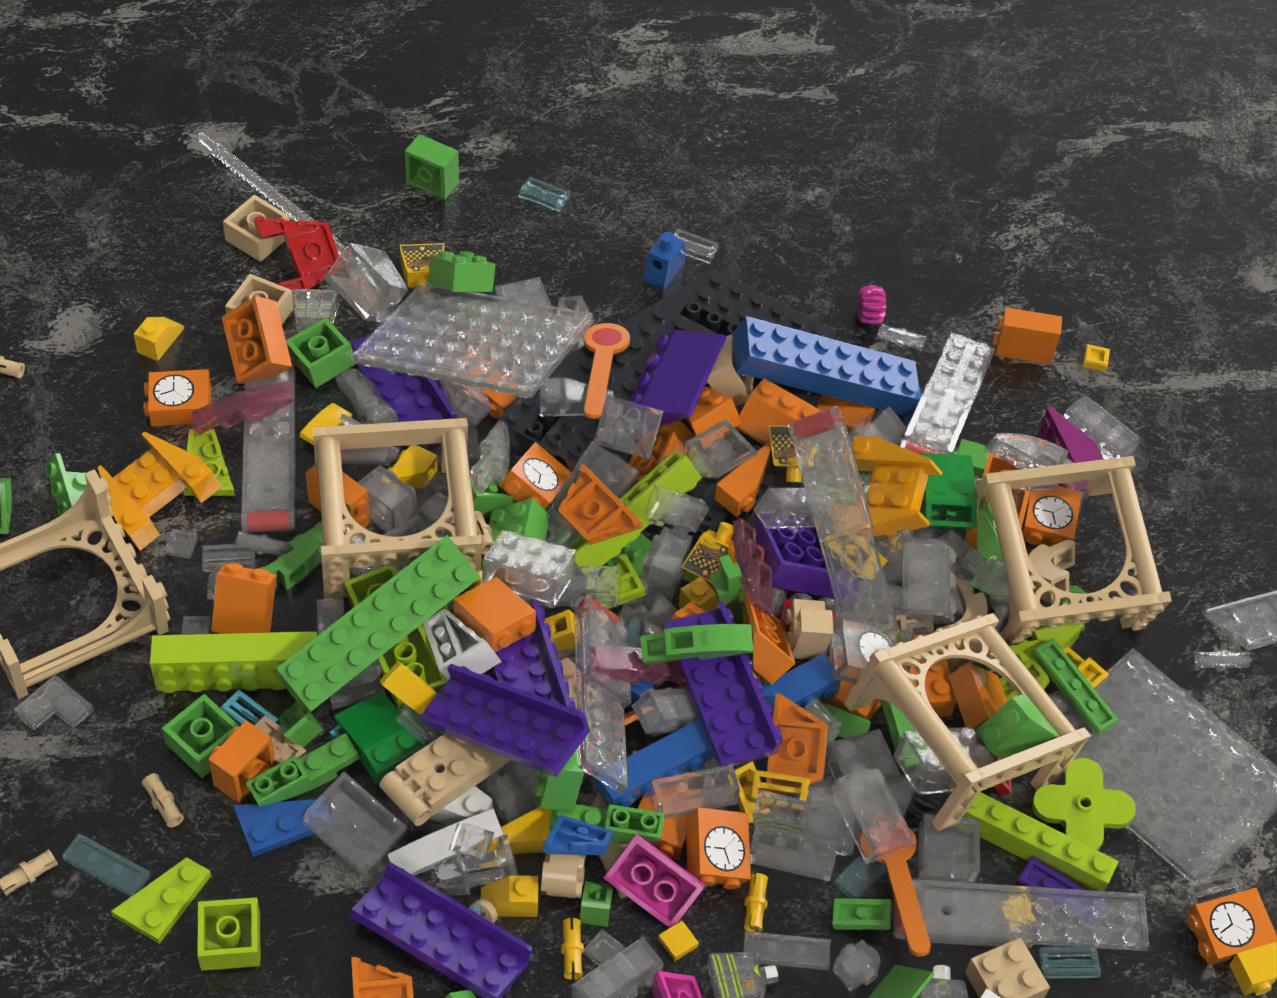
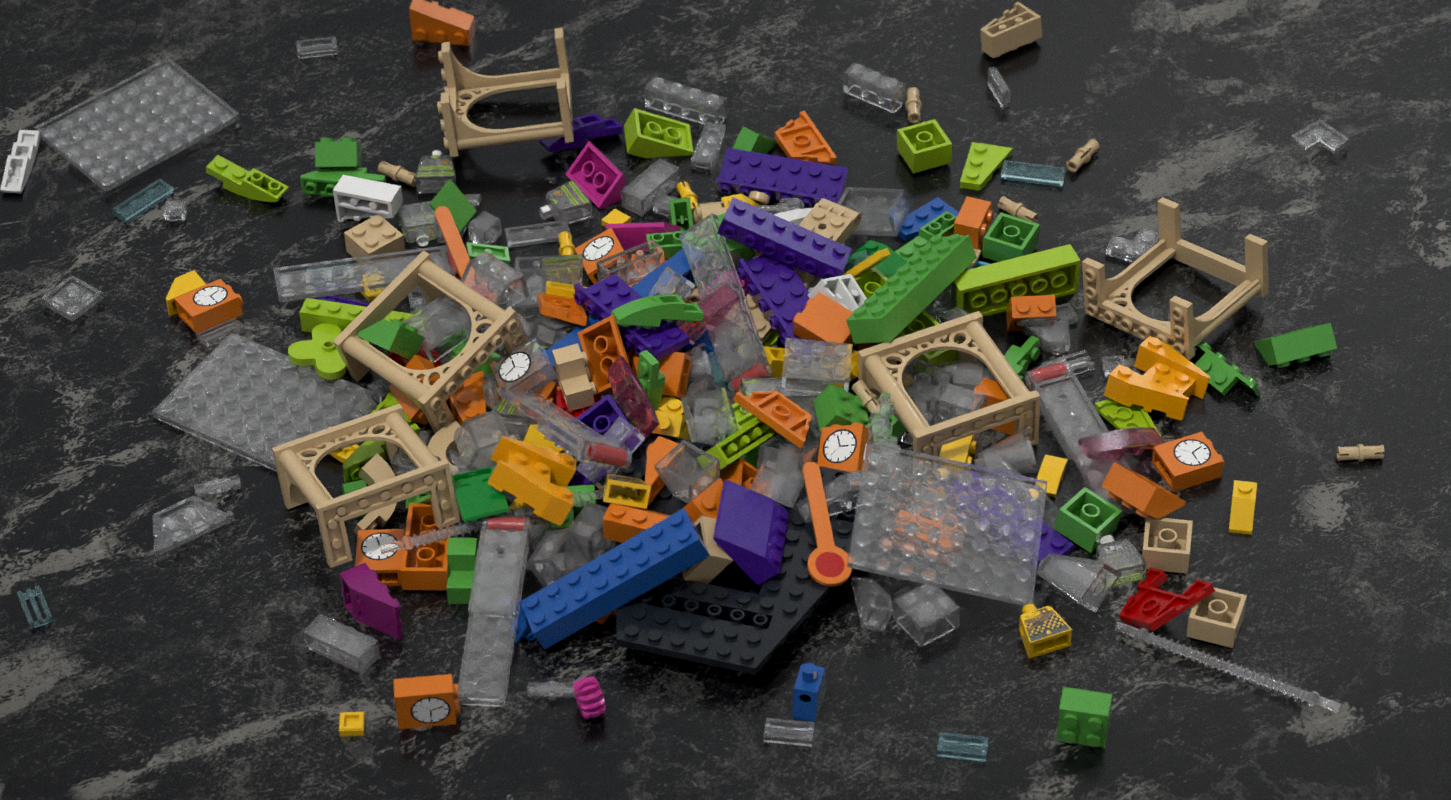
camera: 170 degrees right, 10 degrees down
(461, 272) = (996, 606): bright green brick -> none
(471, 841) = (781, 203): clear brick -> none
(577, 837) = (697, 213): blue wing -> none
(1028, 452) = (408, 560): clear slope -> none
(1075, 686) = (332, 411): bright green tile -> none

